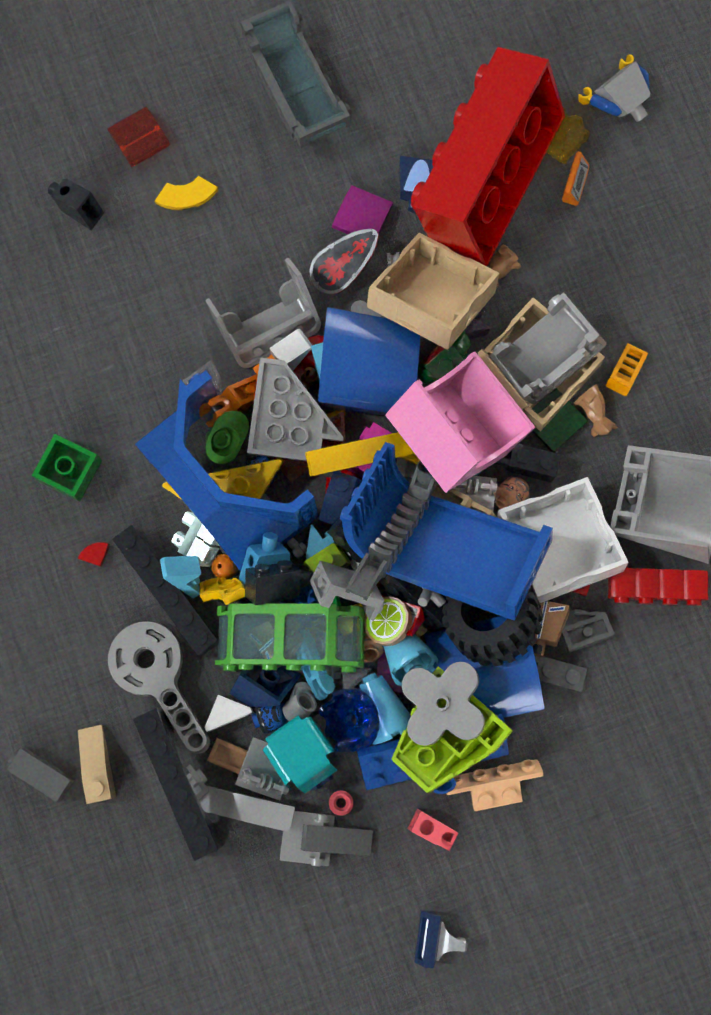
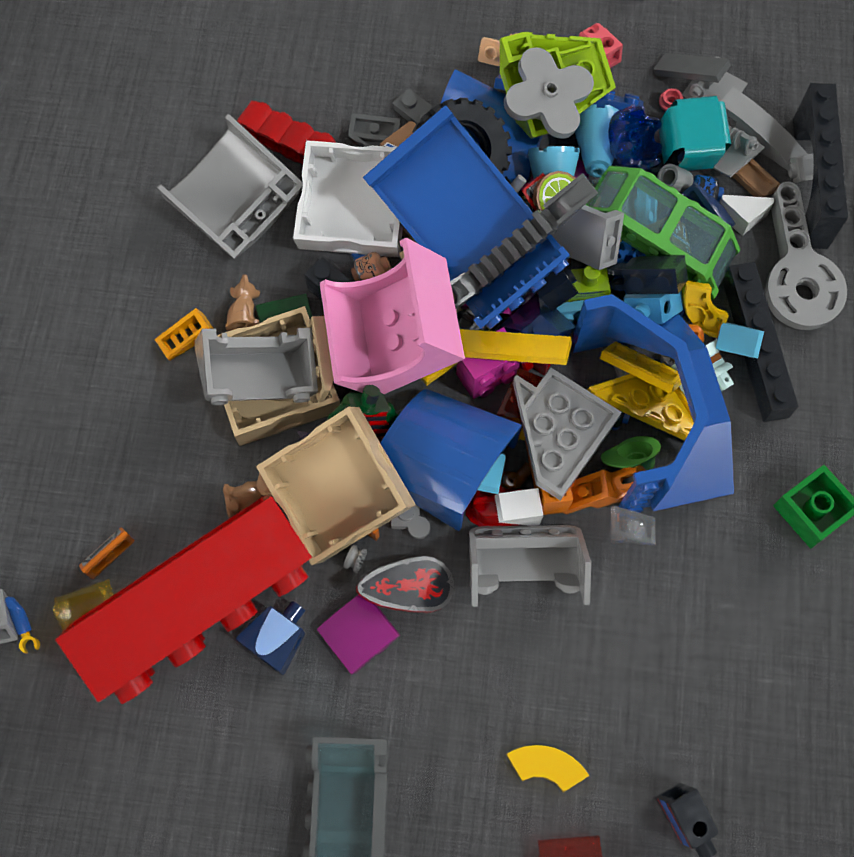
camera: 150 degrees left, 10 degrees down
(94, 553) = (818, 415): red tile -> none

